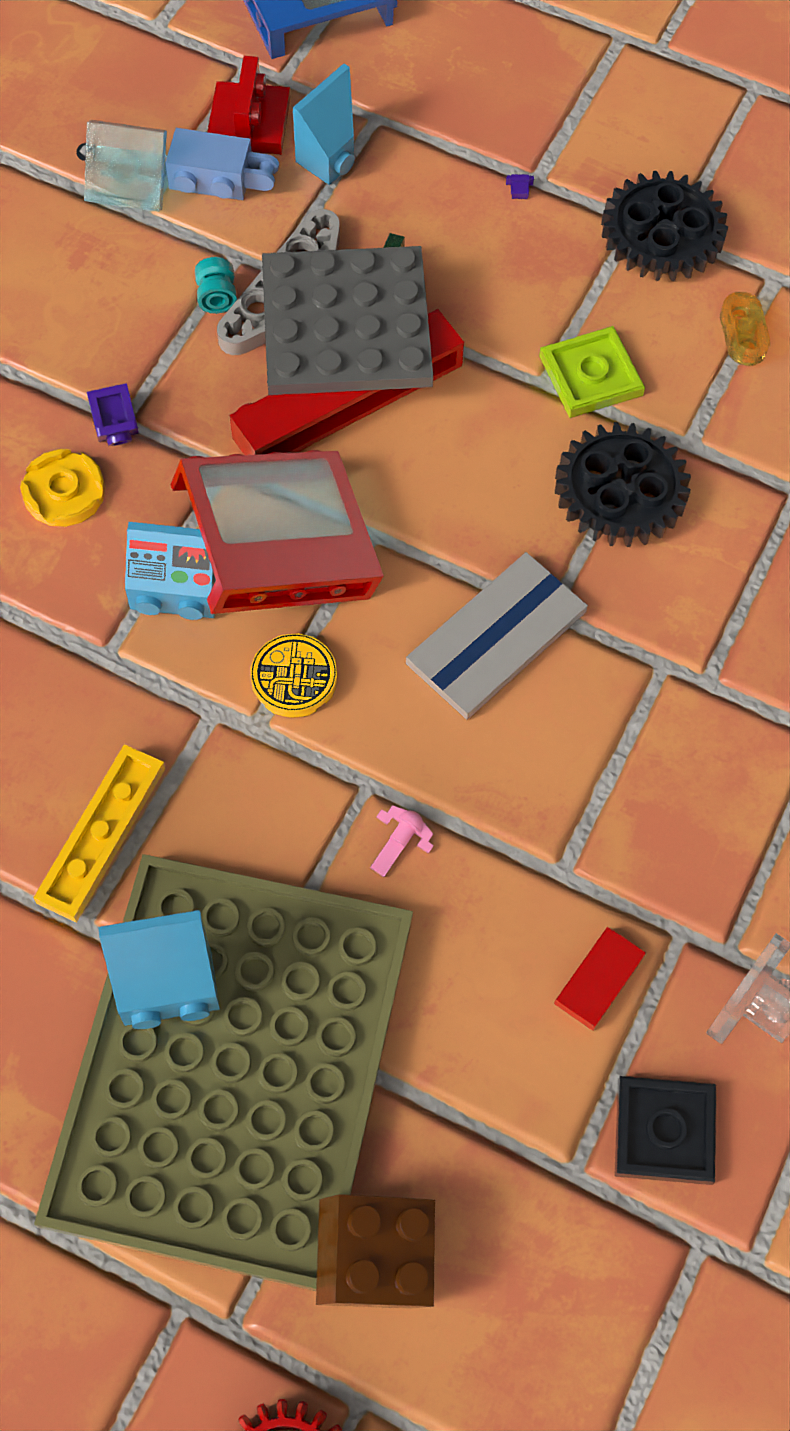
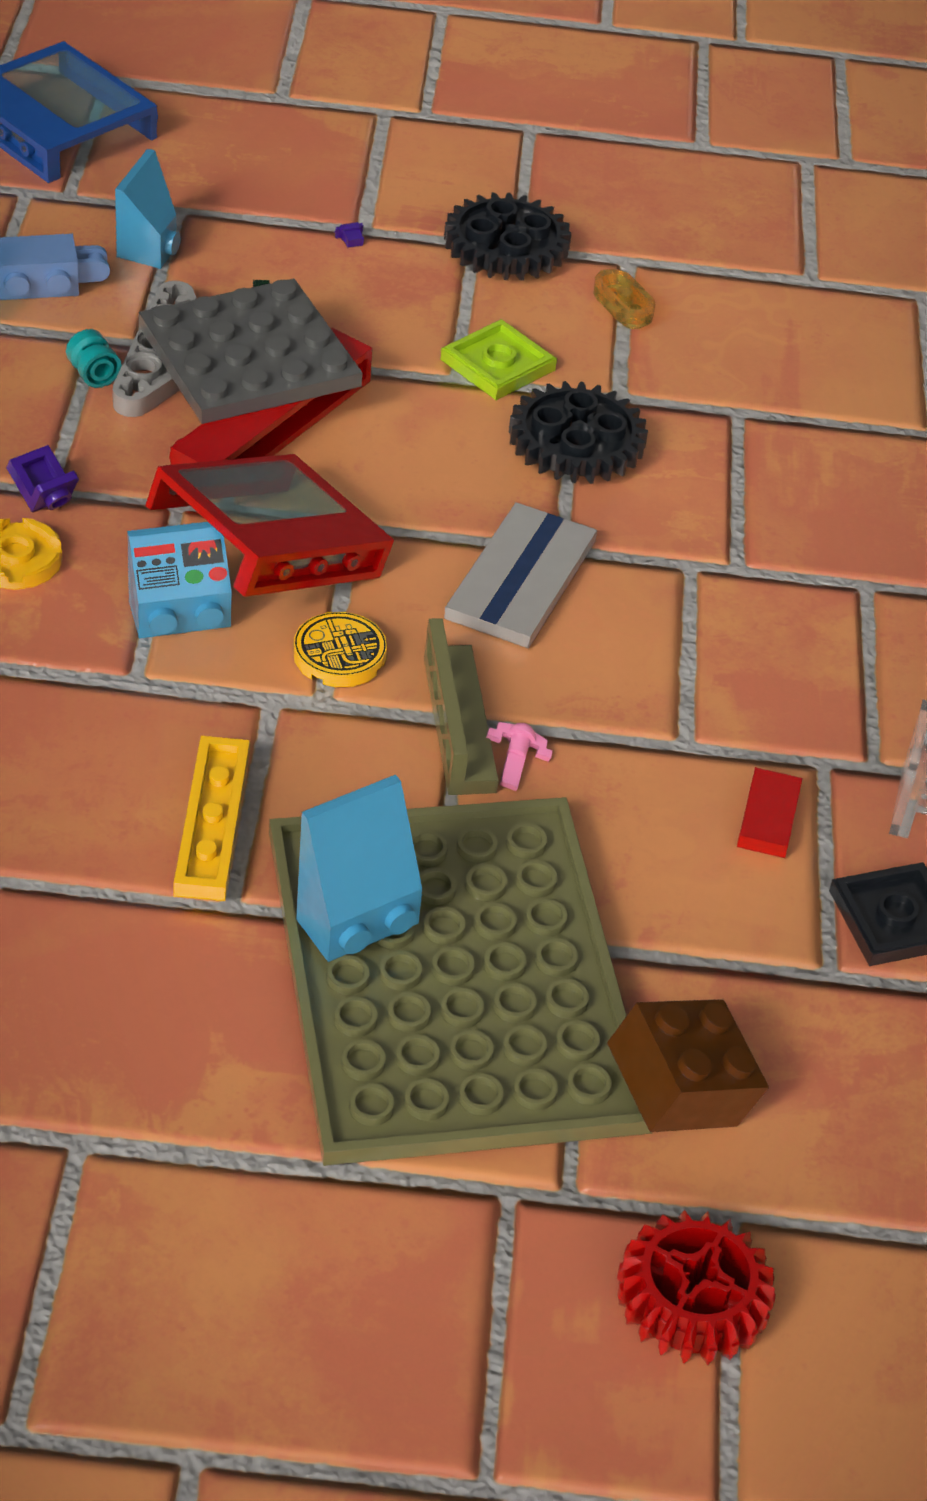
camera: 25 degrees left, 20 degrees down
(251, 109) = (52, 212): red bracket -> none
(364, 782) = (459, 715): none -> olive fence

